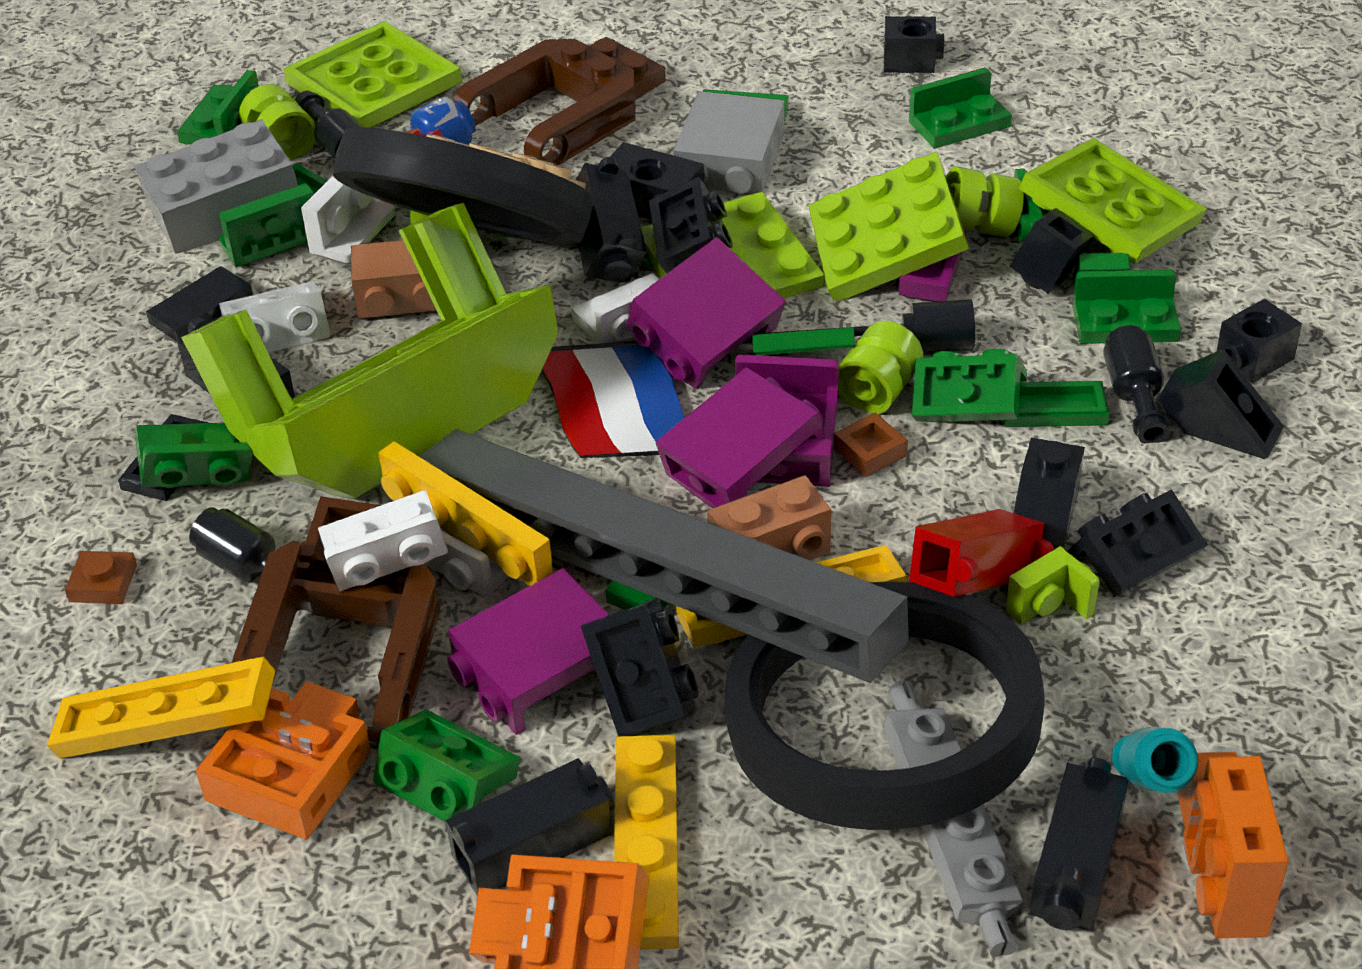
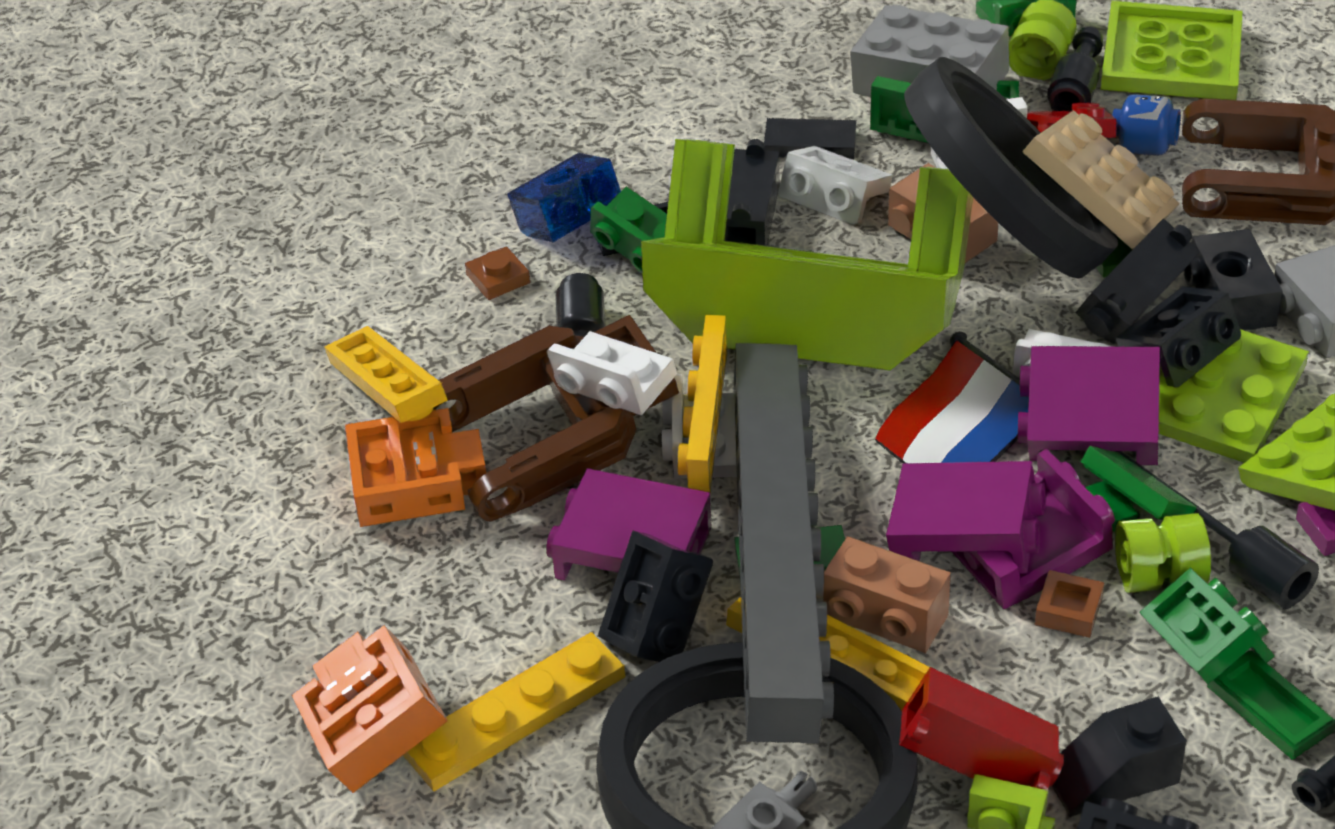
camera: 55 degrees right, 0 degrees up
(81, 476) = (563, 196): none -> clear blue brick
(440, 765) = (479, 551): green bracket -> none
(539, 818) = (459, 632): black brick -> none

